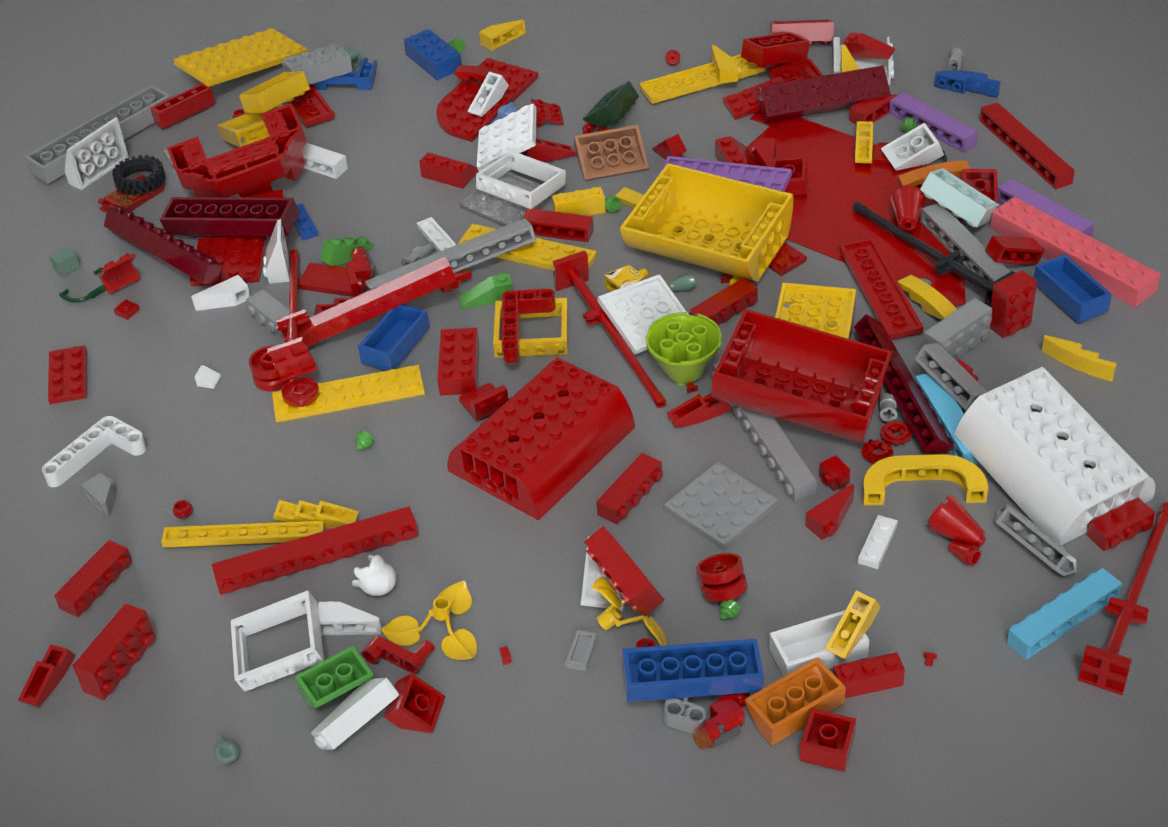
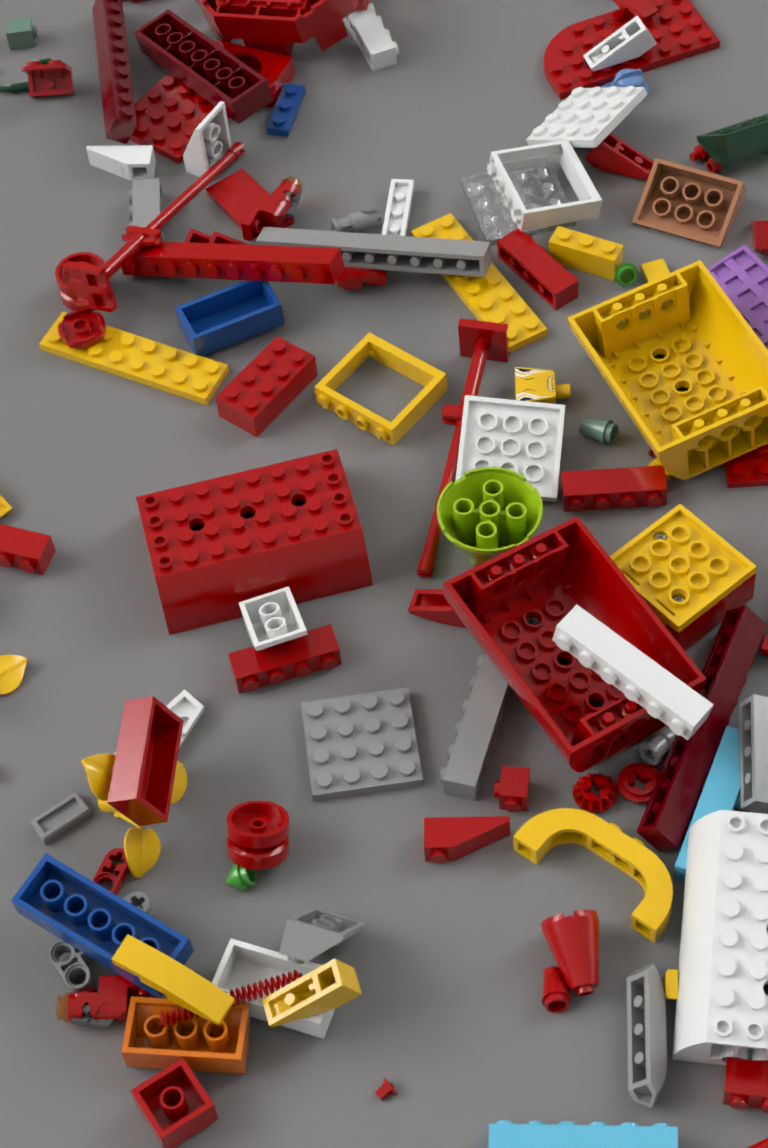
camera: 40 degrees right, 10 degrees up
(126, 309) = (27, 125): red plate -> none
(207, 377) = (23, 255): white slope -> none
(338, 250) = (275, 167): bright green slope -> none
(363, 440) = (93, 425): bright green plate -> none
(447, 170) = (492, 123): red slope -> none
(484, 400) = (246, 450): red bracket -> none
(486, 292) = (382, 315): bright green slope -> none
(516, 303) = (369, 351): red beam -> none
(547, 112) = (674, 104): red hinge -> none
(606, 468) = (272, 618): none -> white slope
(770, 662) = (173, 979): none -> yellow slope
(805, 655) = (254, 991): none -> red piece
(819, 599) = (316, 933): none -> light grey slope
(858, 363) = (632, 672): none -> white brick
(871, 674) = (293, 1062): red brick -> none
(877, 542) = (478, 907): white plate -> none
(1021, 507) = (670, 984): none -> yellow tile

